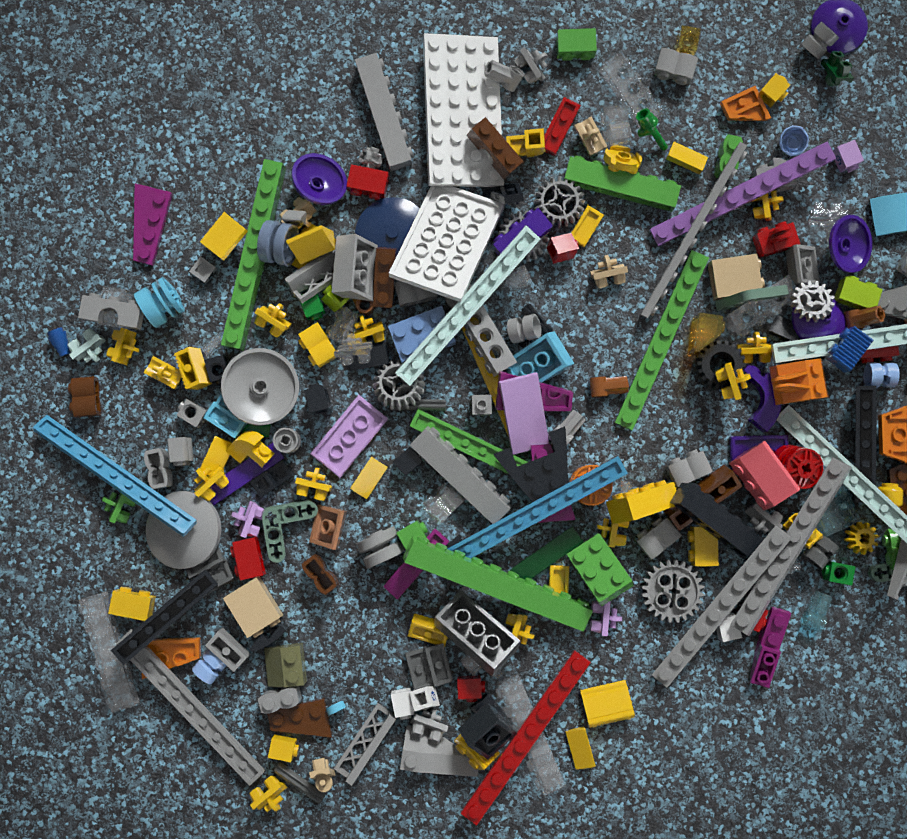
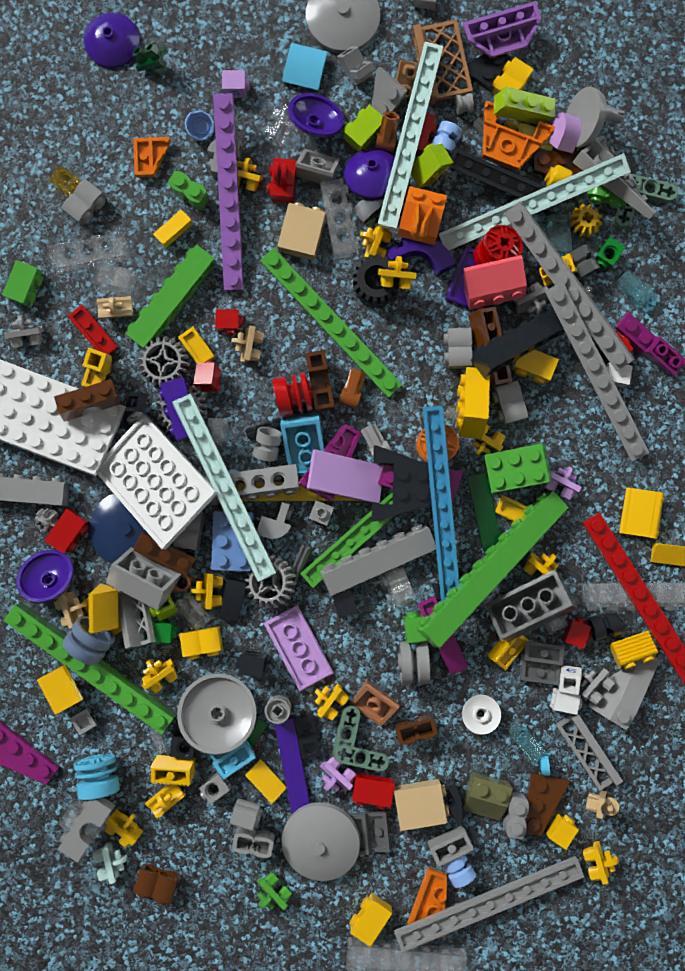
camera: 65 degrees left, 0 degrees up
(59, 341) = (92, 886): blue cone -> none
(115, 475) = (243, 887): dark azure plate -> none
(164, 617) = (396, 896): black brick -> none
(203, 488) = (290, 806): yellow hips -> none
(250, 445) = (268, 745): yellow brick -> none
(295, 217) = (71, 614): light grey slope -> none
(299, 782) = (599, 829): dark grey axle -> none
(350, 683) = (527, 742): none -> clear light blue piece
(351, 347) = (217, 610): clear hips -> none
(356, 639) = (485, 723): none -> white dish
(368, 477) = (344, 646): yellow slope -> none
(448, 368) = (276, 528): none -> light grey brick
(487, 731) = (624, 635): black slope -> none
(507, 76) = (26, 359): light grey piece -> none
(579, 333) = (292, 395): none -> red wheel
(602, 352) = (319, 381): none -> reddish brown arch
(622, 159) = (147, 288): yellow plate -> none
(622, 245) = (228, 321): none -> red brick
(648, 127) = (127, 250): green piece -> none
(690, 592) = (556, 426): light grey gear -> none
(698, 224) = (239, 244): light grey plate -> none
(703, 331) = (339, 280): clear yellow slope -> none
(750, 296) = (325, 224): sand green beam -> none
(774, 90) = (145, 122): yellow brick -> none
(803, 298) = (354, 171): light grey gear -> none
(822, 37) = (118, 63): light grey wheel -> none
(849, 348) = (411, 156): blue brick -> none
(856, 377) = (430, 165): none -> lime brick

